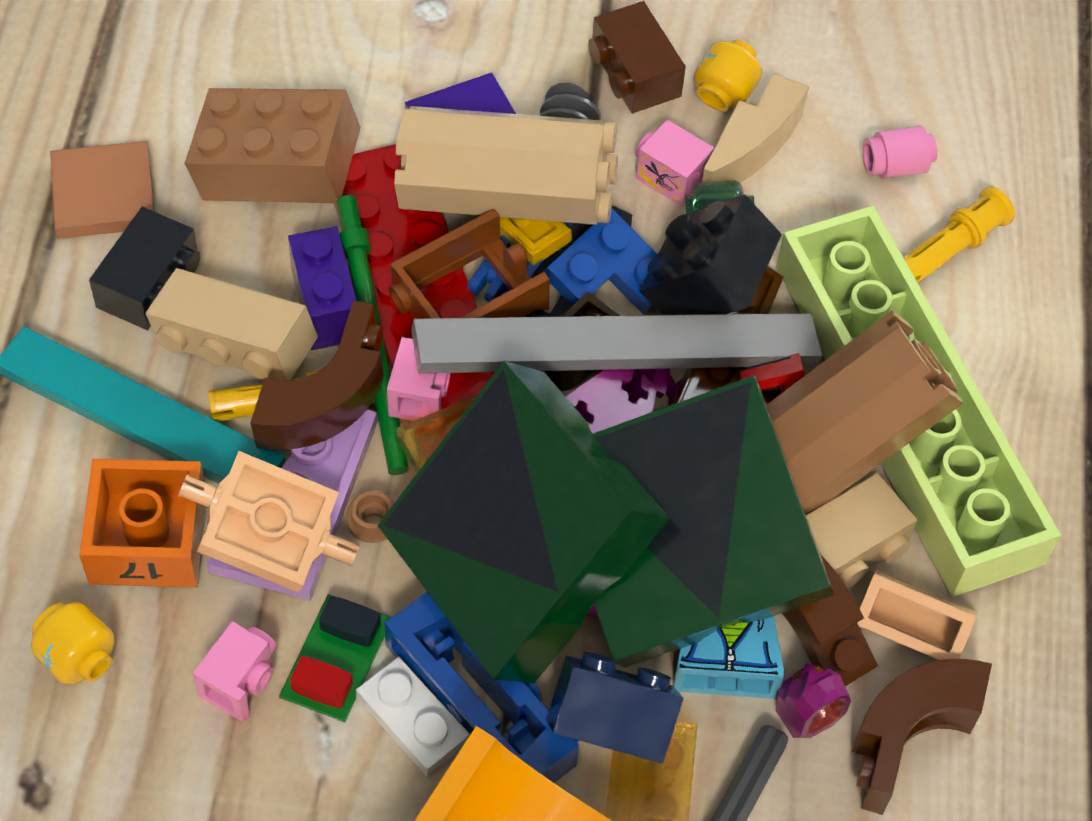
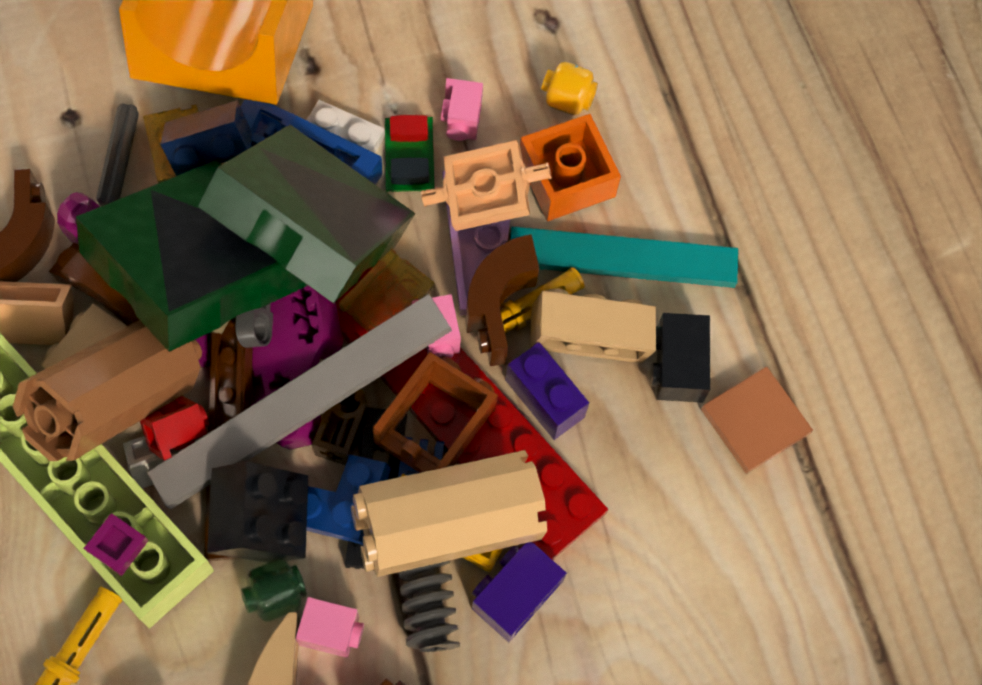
camera: 155 degrees right, 10 degrees up
(273, 145) = (646, 488): medium nougat brick -> none
(356, 248) = (538, 426): green bar -> none
(362, 506) = (425, 235): medium nougat plate -> none
(879, 264) = (116, 544): none -> magenta plate

